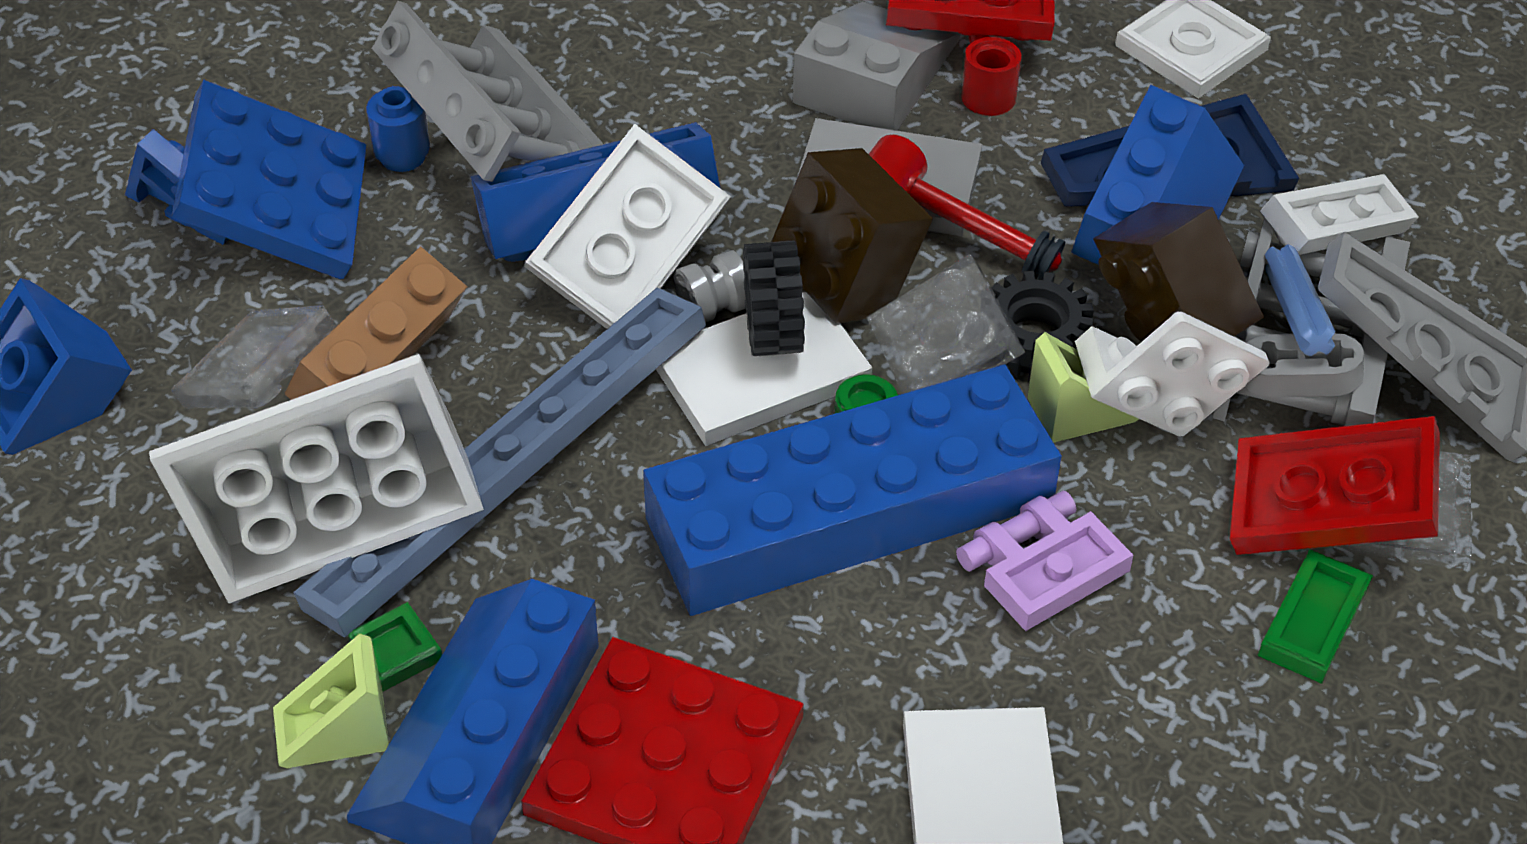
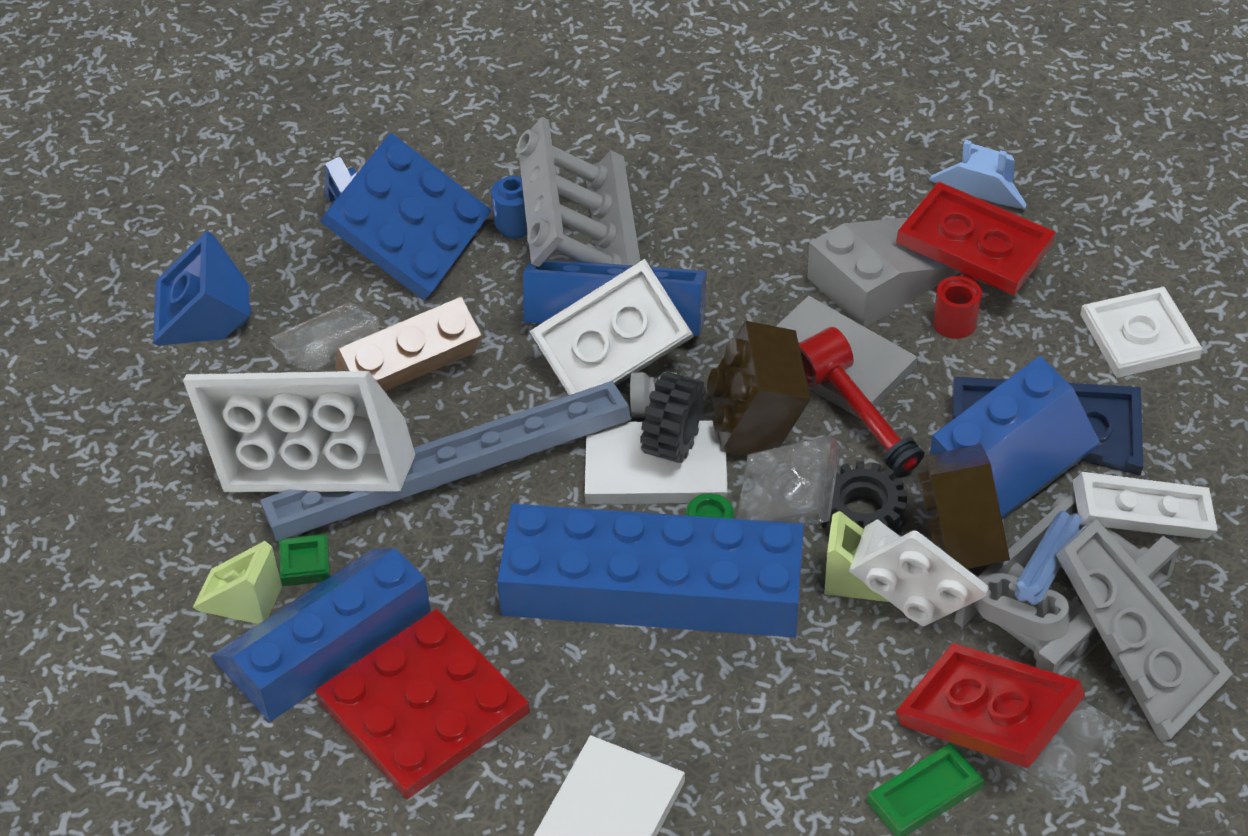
camera: 30 degrees right, 0 degrees up
(1053, 572) = (757, 682): lavender plate -> none

